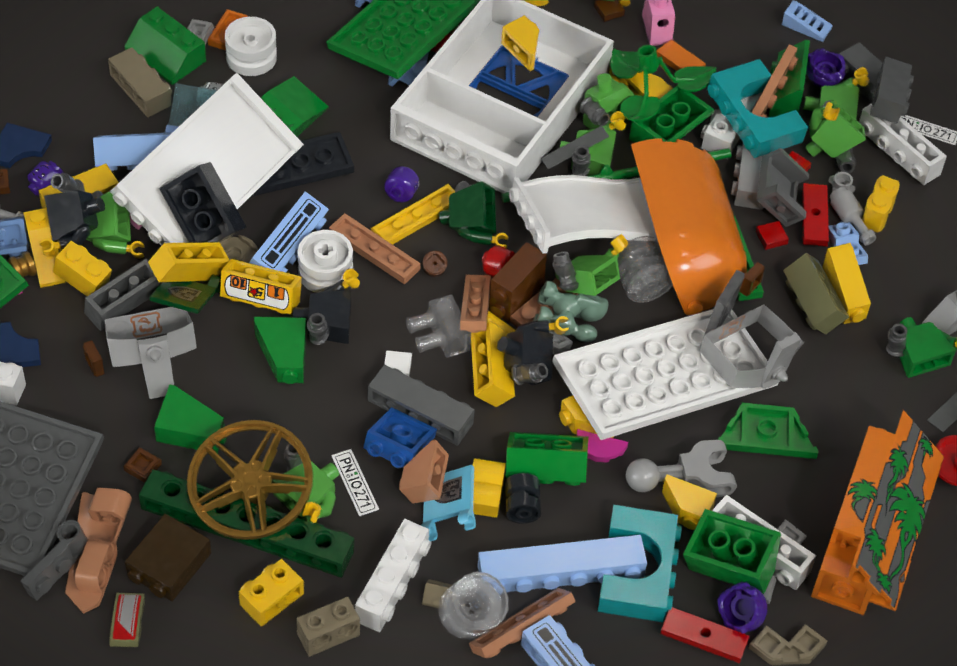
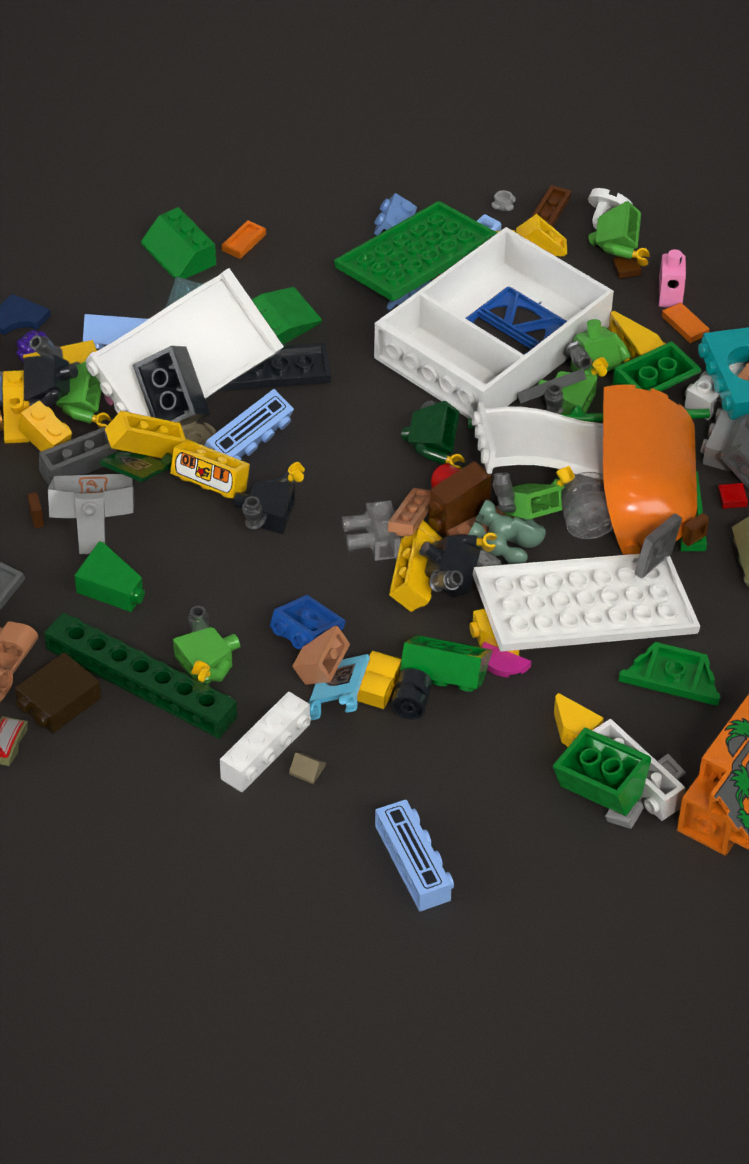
camera: 15 degrees right, 5 degrees down
(140, 82) = (146, 273): dark tan brick -> none
(142, 464) = (55, 607): reddish brown tile -> none
(201, 29) = (217, 235): light grey tile -> none
(250, 480) = (151, 634): pearl gold wheel -> none
(251, 46) = (259, 254): white wheel -> none
(271, 592) = (146, 738): yellow brick -> none
(283, 346) = (218, 525): green slope -> none
(323, 259) = (275, 450): white wheel -> none
(328, 626) = (191, 776): dark tan brick -> none
(355, 482) = (255, 657): white sticker -> none
(377, 249) = (330, 452): nougat plate -> none
(399, 360) = (324, 558): white tile -> none
(401, 184) = (372, 397): dark purple head -> none
(414, 216) = (373, 431): yellow tile -> none
(421, 402) = (337, 594): dark grey brick -> none
(434, 263) = (385, 473): reddish brown tile -> none
(486, 600) = (343, 767): clear wheel -> none
(512, 628) = (365, 810): nougat plate -> none
(521, 40) = (520, 278): yellow slope -> none
(565, 563) = (433, 759): light blue brick -> none
(645, 60) = (640, 313): green plant -> none
(647, 596) = (513, 800): teal arch -> none
(692, 467) = (589, 692): light grey piece -> none
(718, 639) = (557, 845): red tile -> none
(742, 607) = (600, 825): dark purple hair -> none
(778, 651) = (651, 875): dark tan tile -> none
(780, 358) = (699, 601): light grey piece -> none

